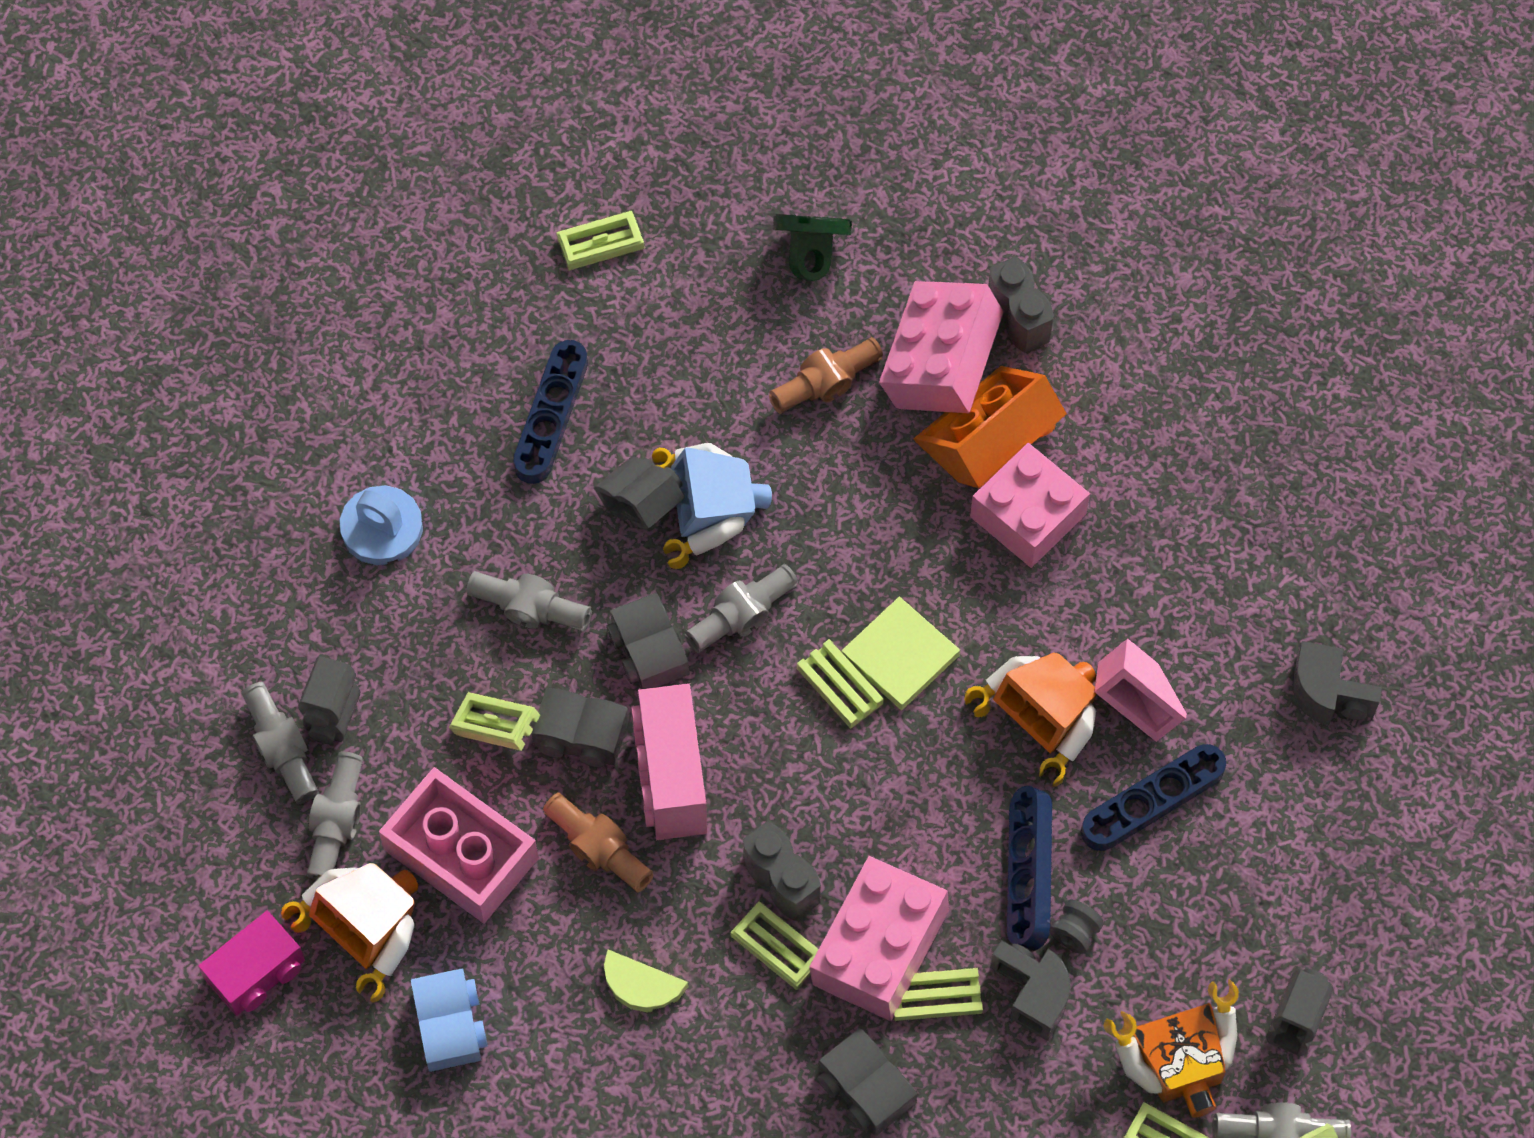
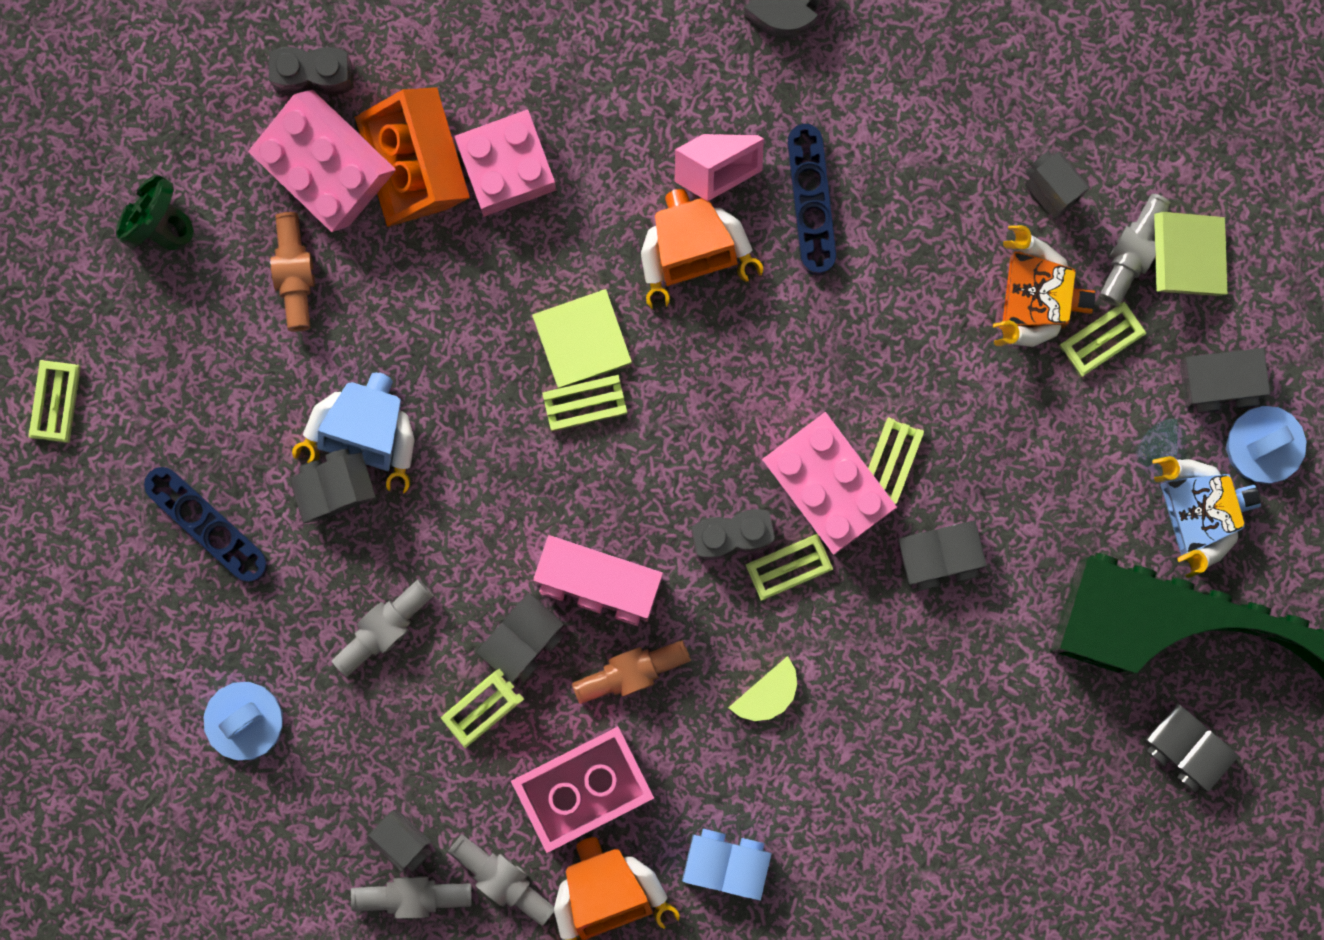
camera: 65 degrees left, 20 degrees up
(648, 642) = (472, 545): dark grey brick -> none
(741, 608) = (478, 452): light grey pin -> none
(1030, 916) = (828, 327): dark blue beam -> none
(1043, 983) = (936, 373): dark grey brick -> none
(1076, 926) = (893, 320): dark grey wheel -> none

